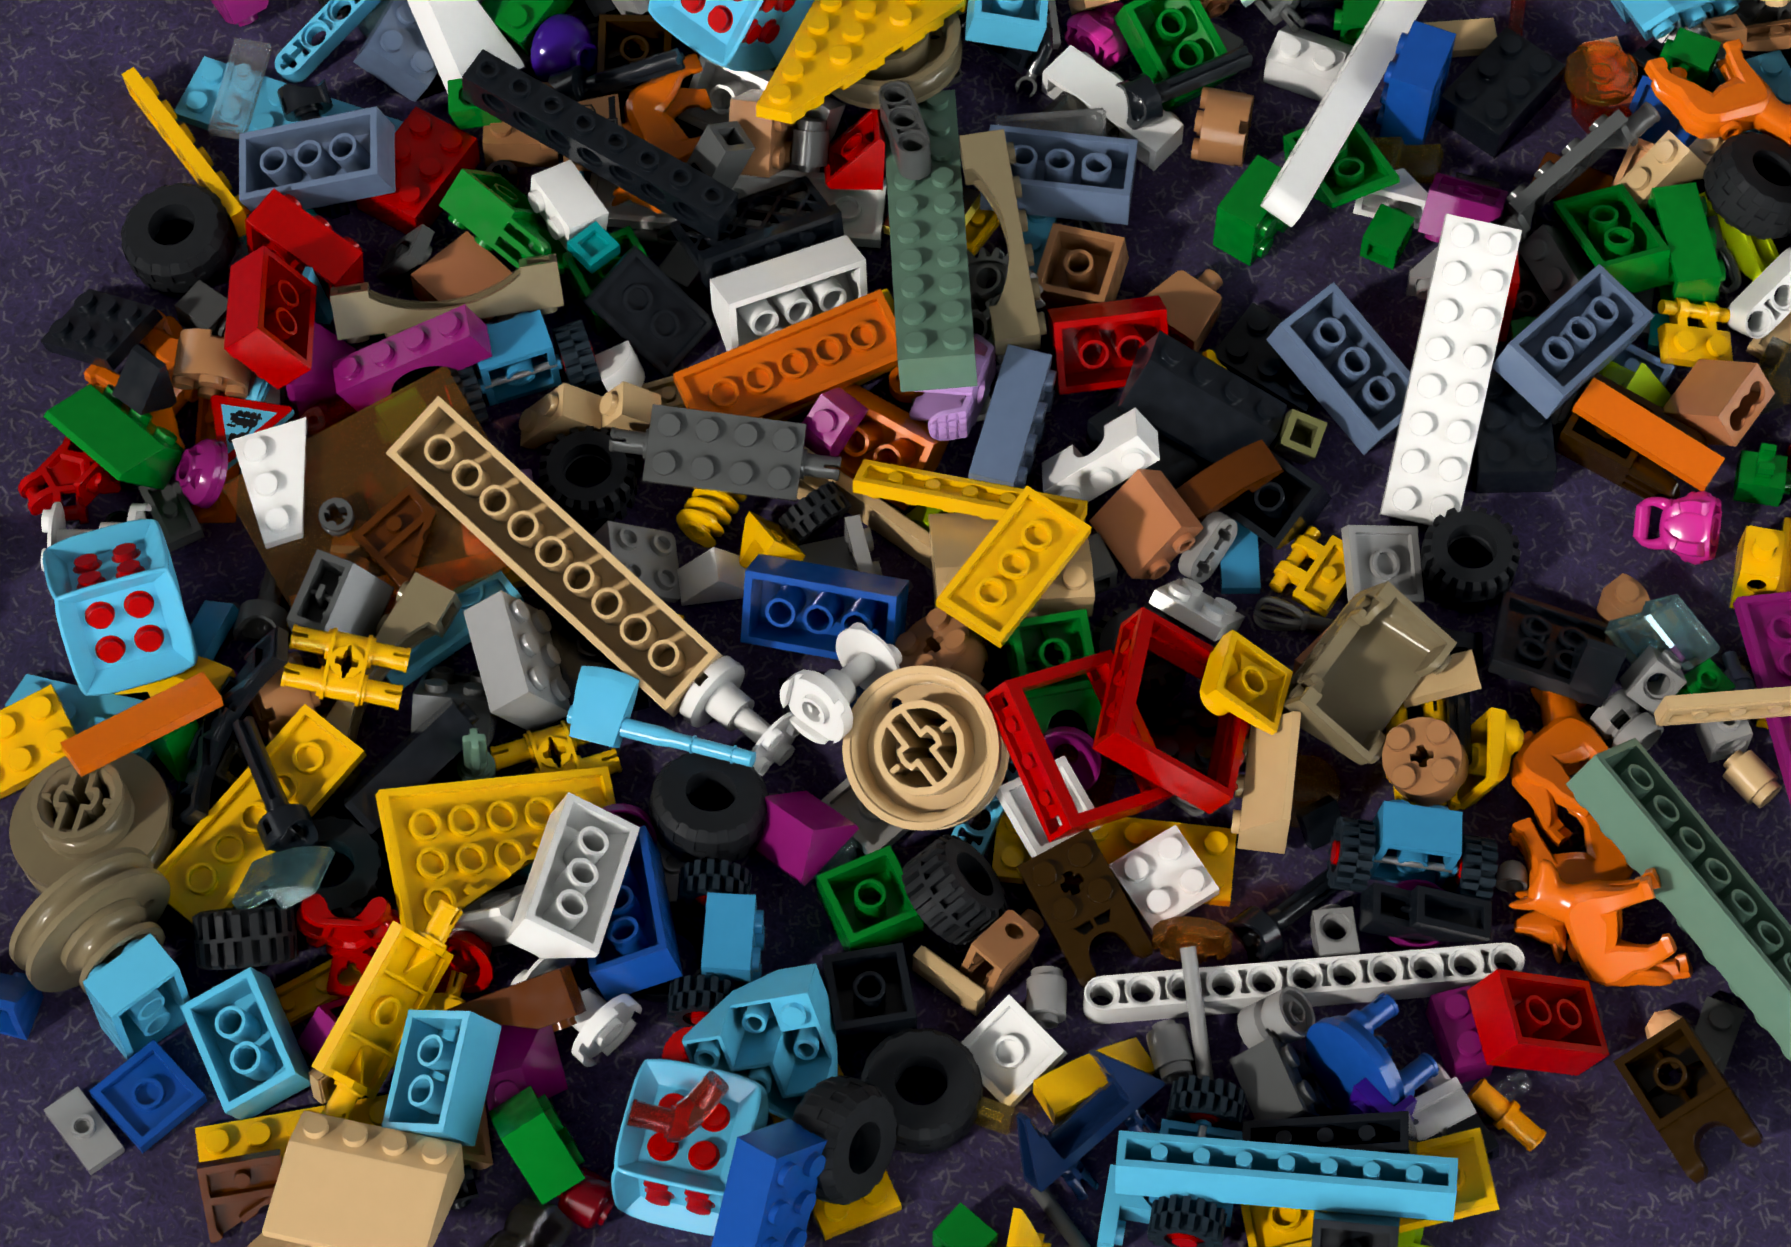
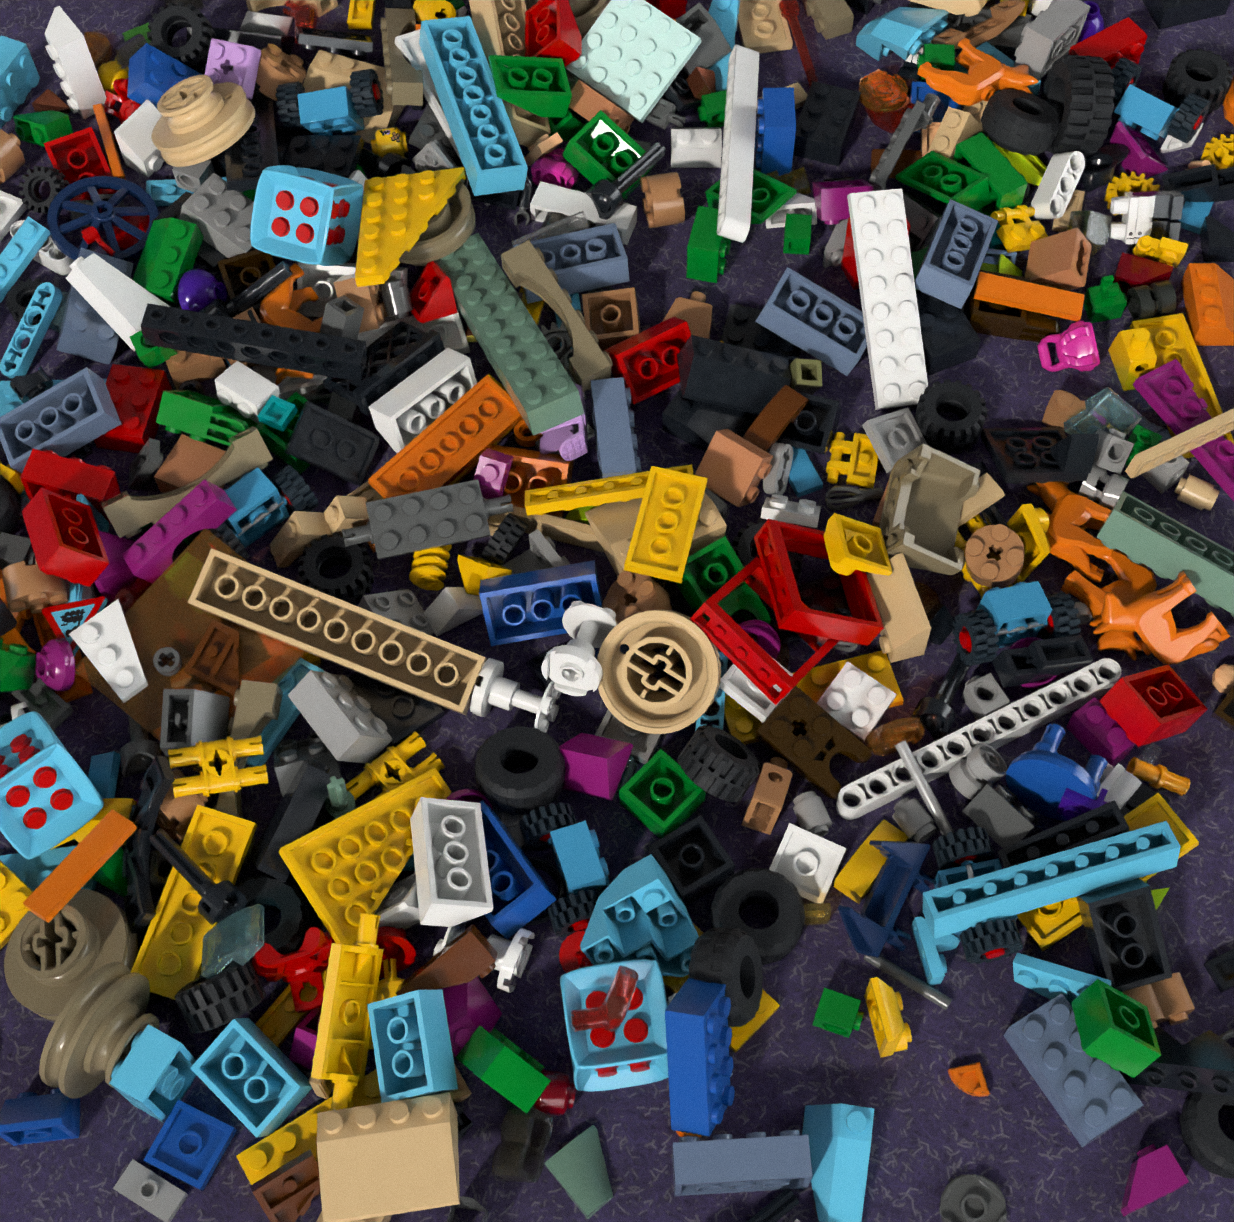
camera: 20 degrees left, 0 degrees up
(603, 714) = (418, 732): medium azure piece -> none
(620, 365) = (326, 488): white brick -> none
(905, 130) = (460, 265): dark grey beam -> none
(948, 980) = (740, 828): tan tile -> none
(1127, 446) = (699, 425): white arch -> none

